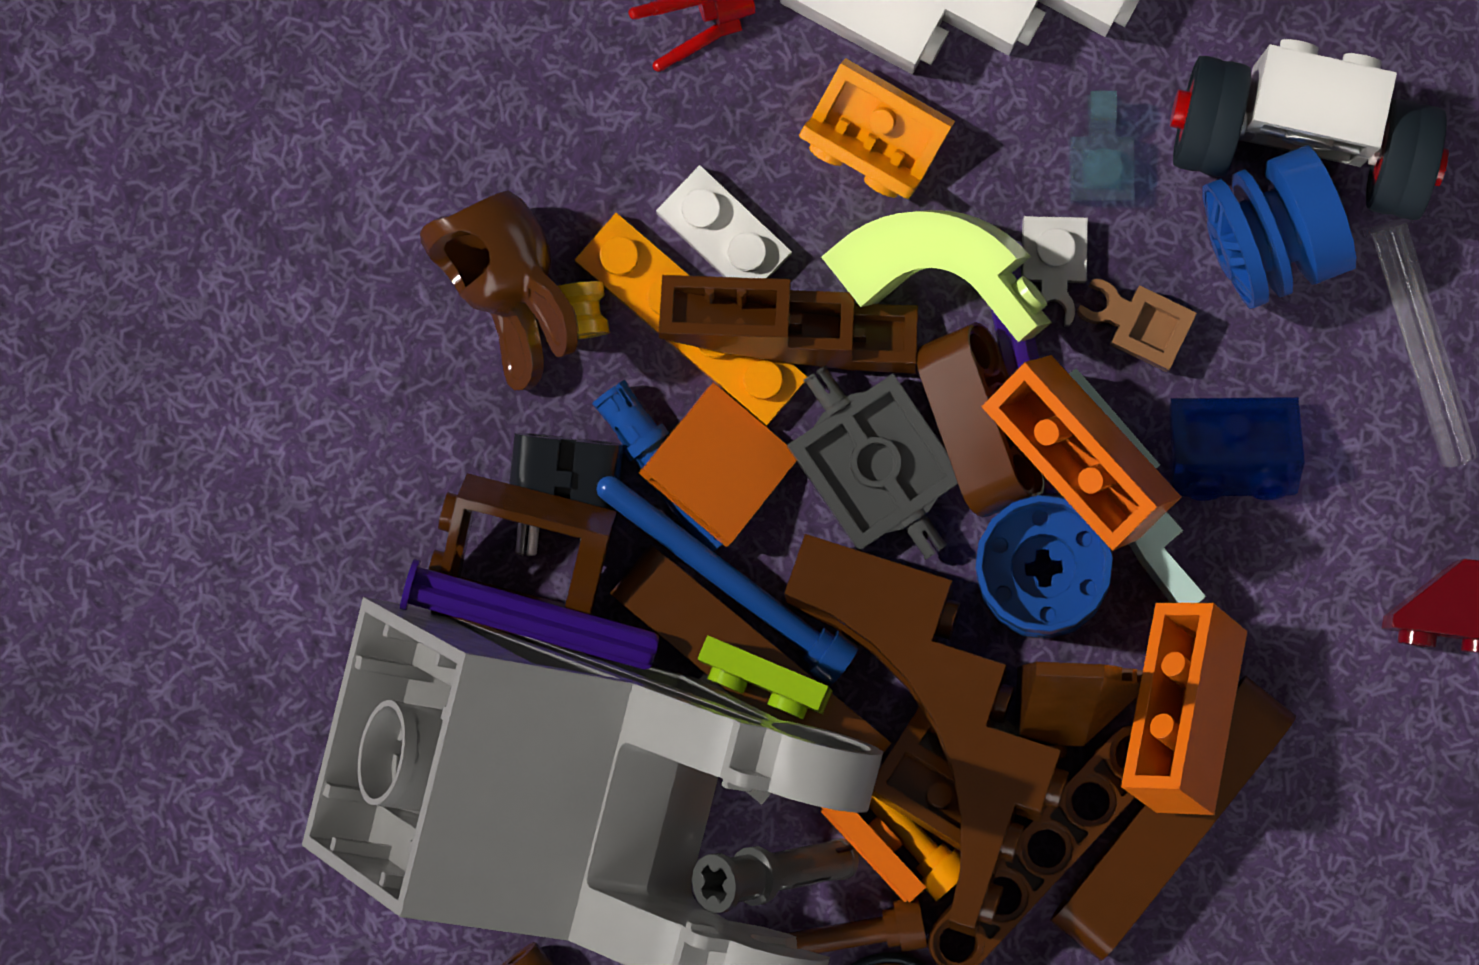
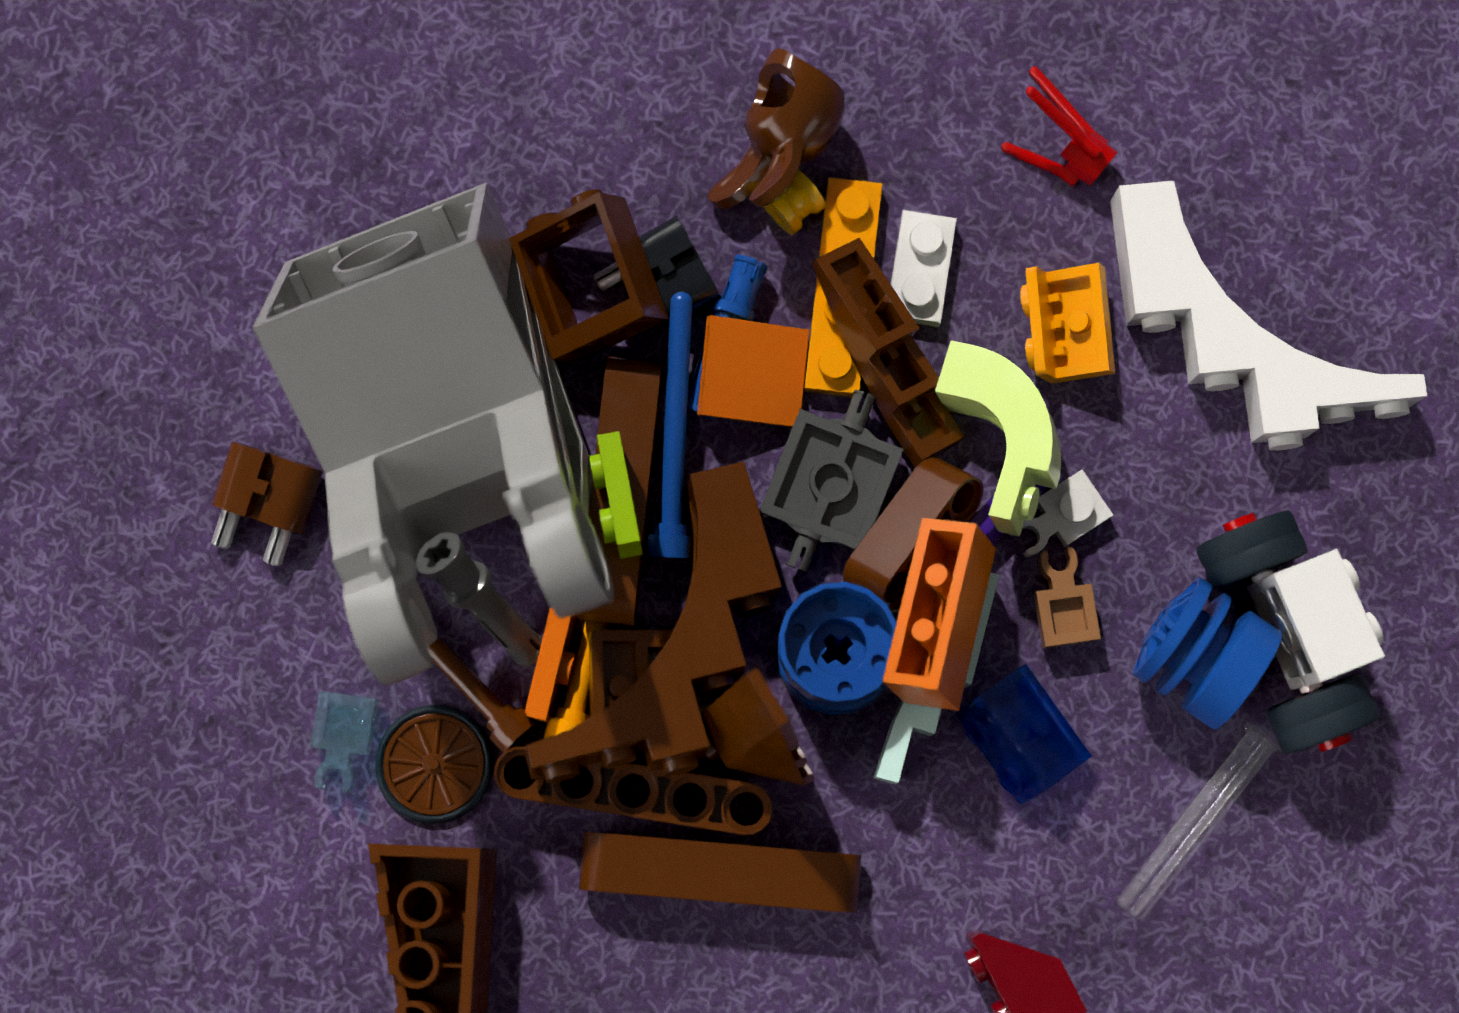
camera: 55 degrees right, 5 degrees down
(529, 617) = (548, 302): dark purple axle -> none
(1101, 163) = (1161, 499): clear light blue plate -> none
(1184, 708) = (803, 819): orange brick -> none

